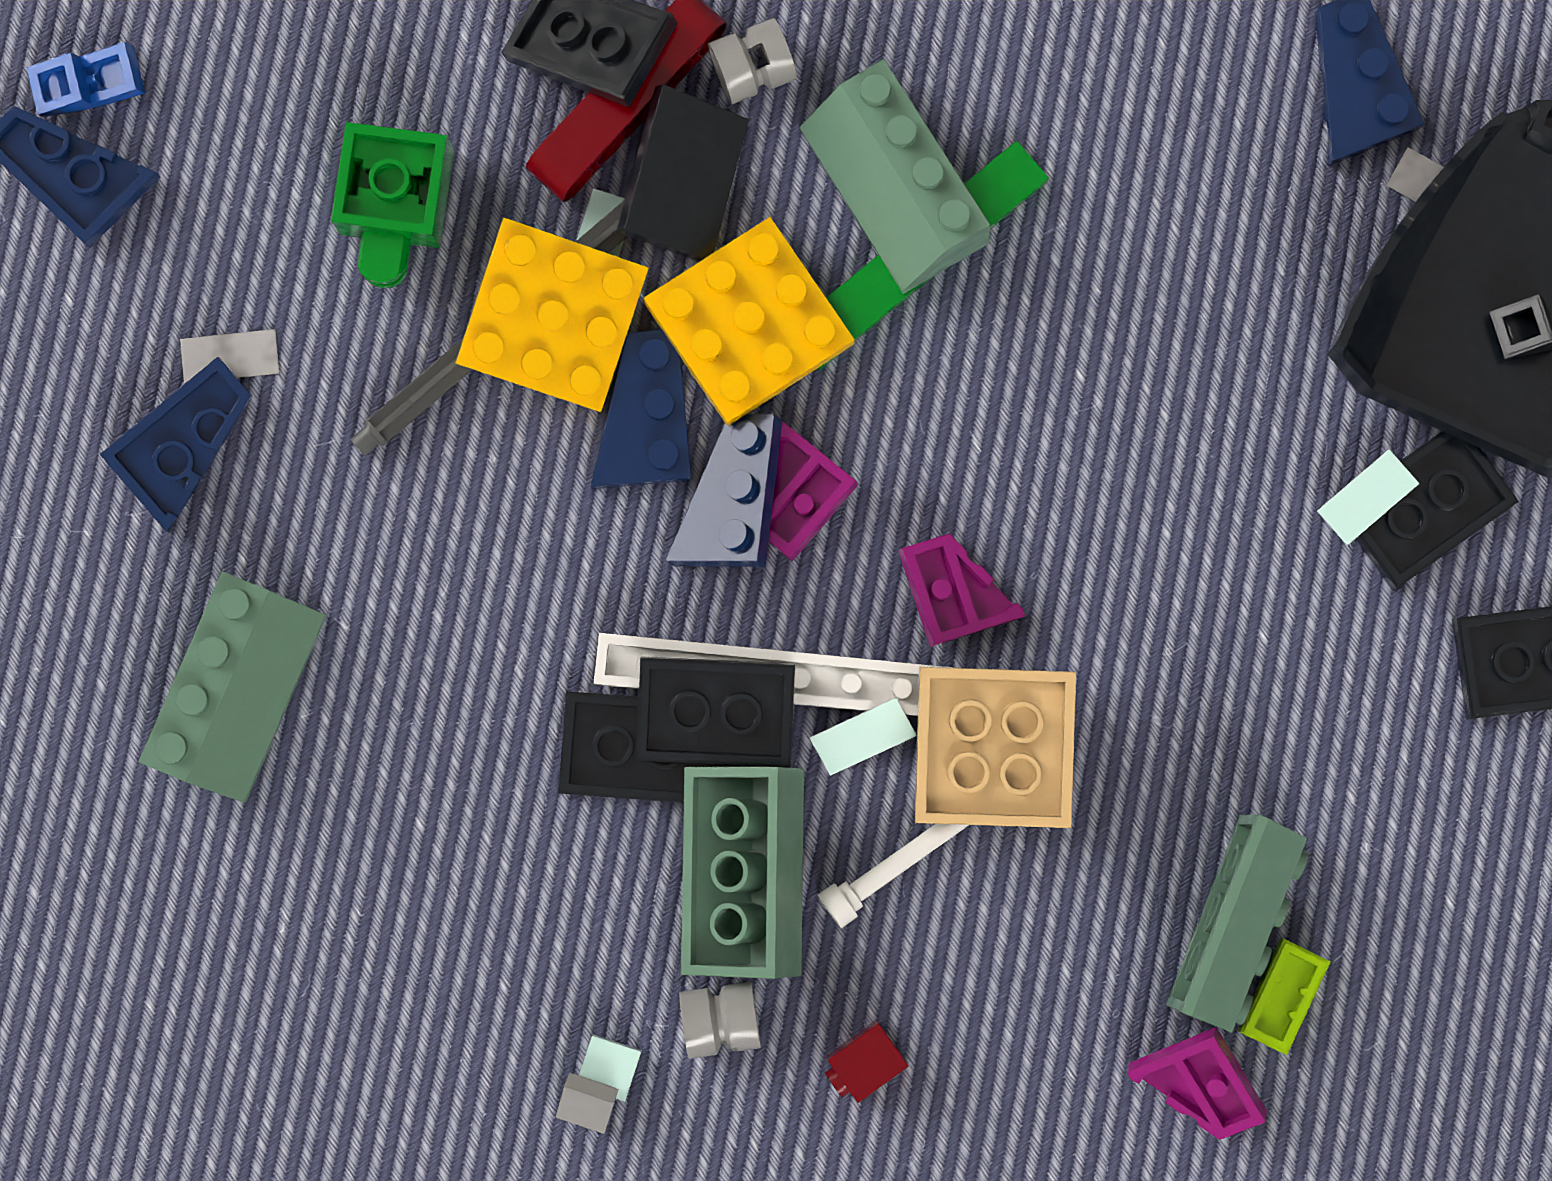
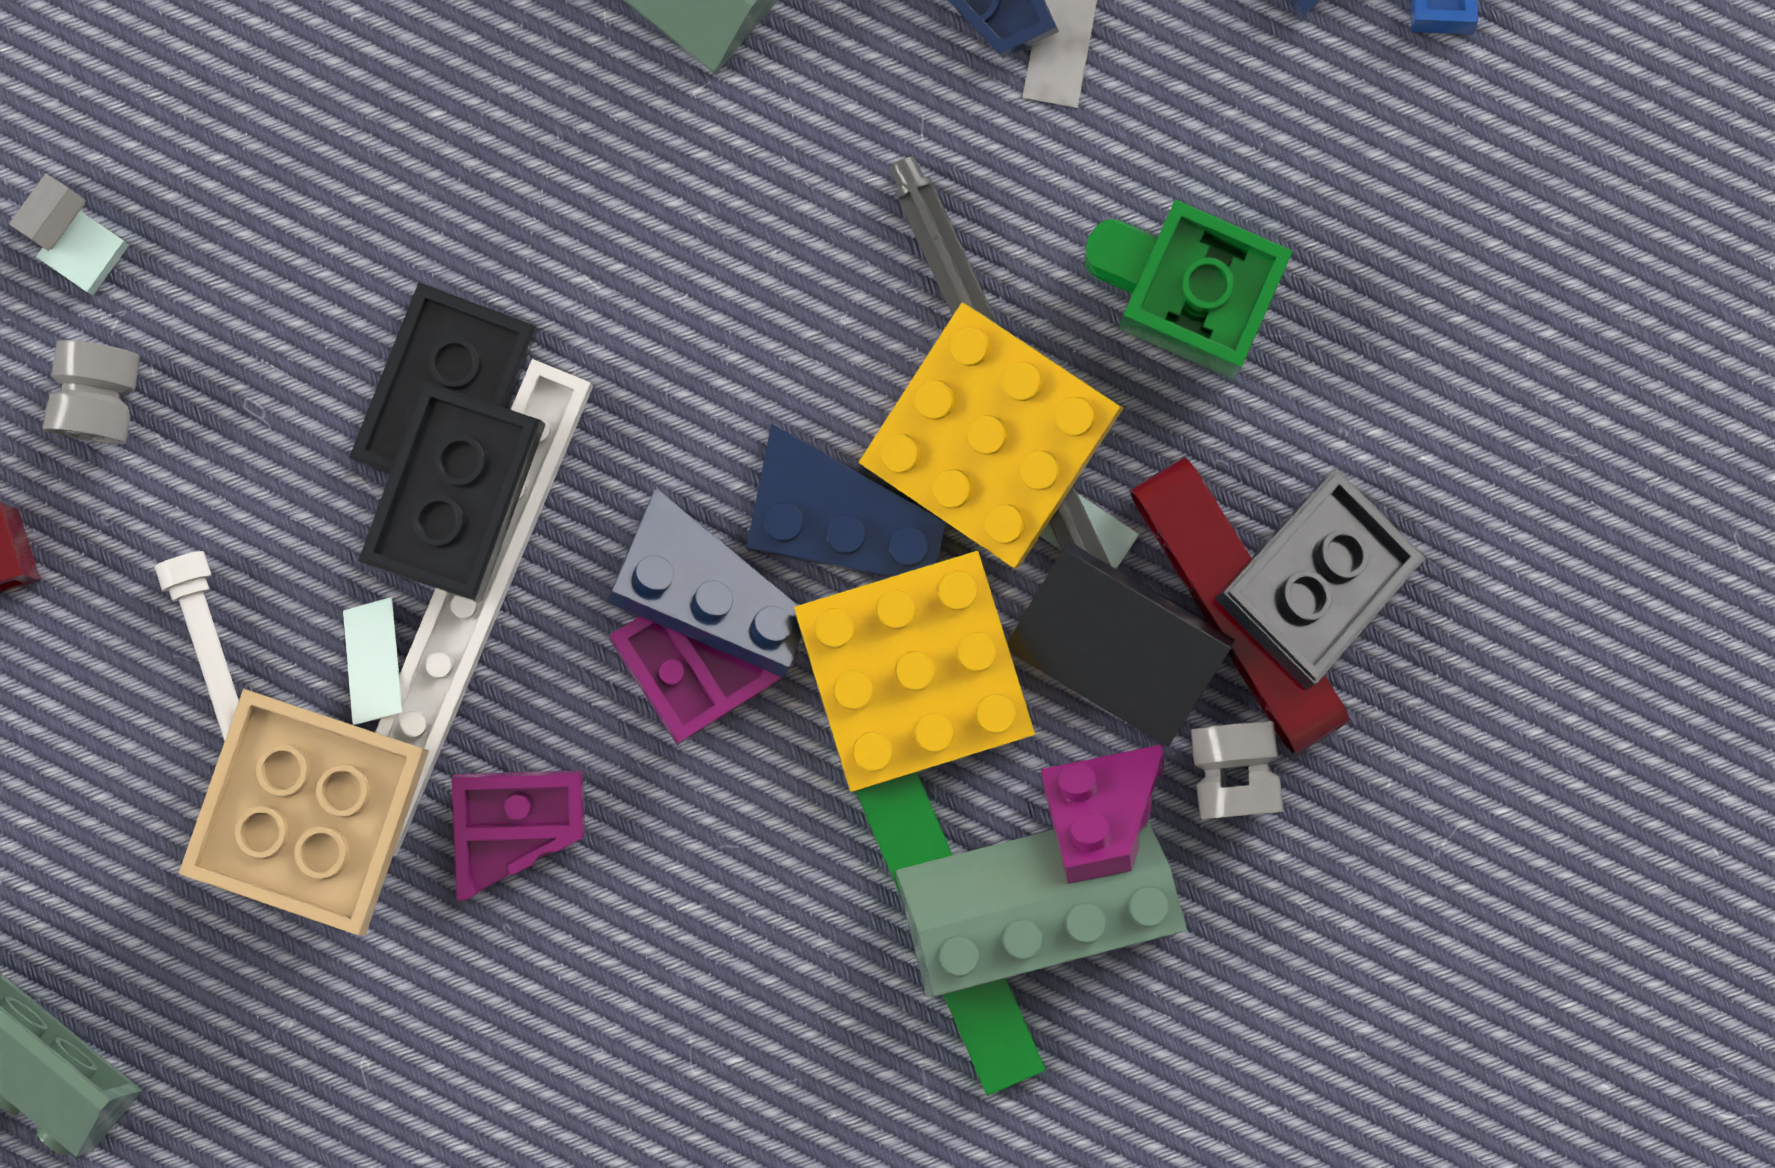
camera: 110 degrees right, 0 degrees up
(742, 872) = (251, 469): sand green slope -> none
(812, 152) = (1101, 810): none -> magenta wing

